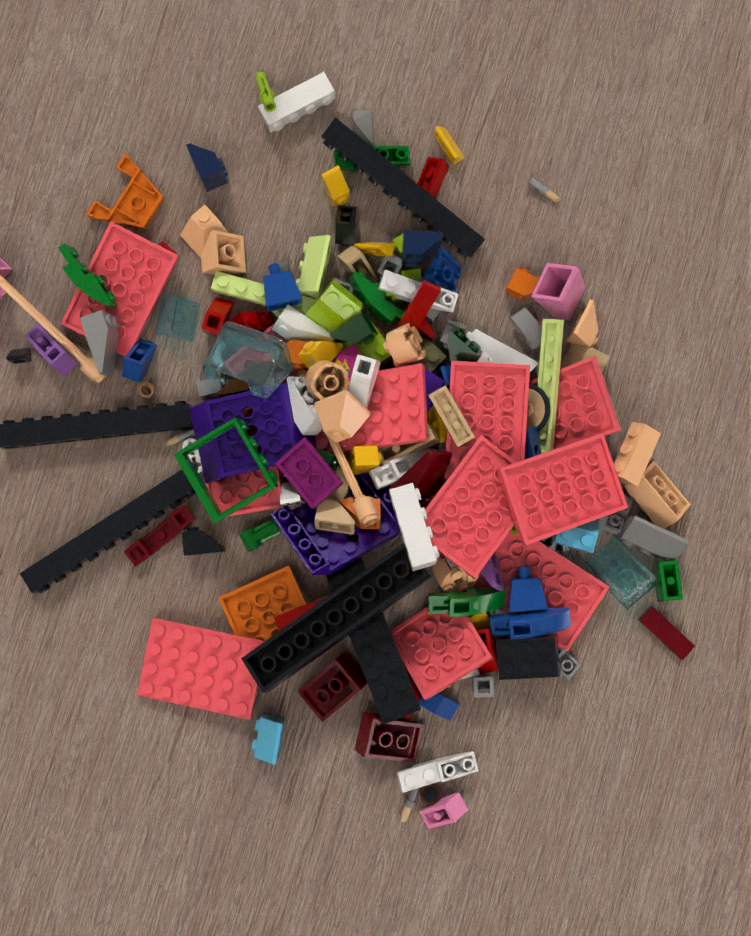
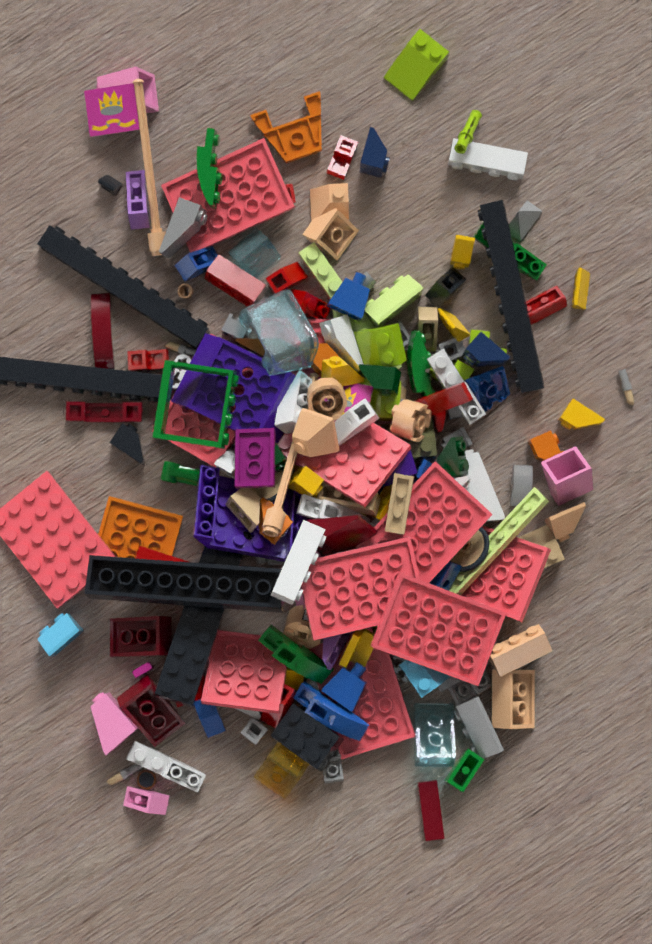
camera: 40 degrees right, 0 degrees up
(107, 473) = (102, 331): none -> dark red slope
(161, 467) = (147, 360): none -> red slope
(178, 351) = (234, 281): none -> panel
(183, 73) = (416, 64): none -> lime slope
(184, 190) = (342, 157): none -> slope
(356, 710) = (142, 669): none -> dark pink tile
(366, 774) = (111, 722): none -> bright pink slope
(511, 554) = (359, 648): none -> yellow panel
(527, 240) = (579, 416): none -> yellow slope
(528, 699) = (281, 770): none -> clear yellow slope

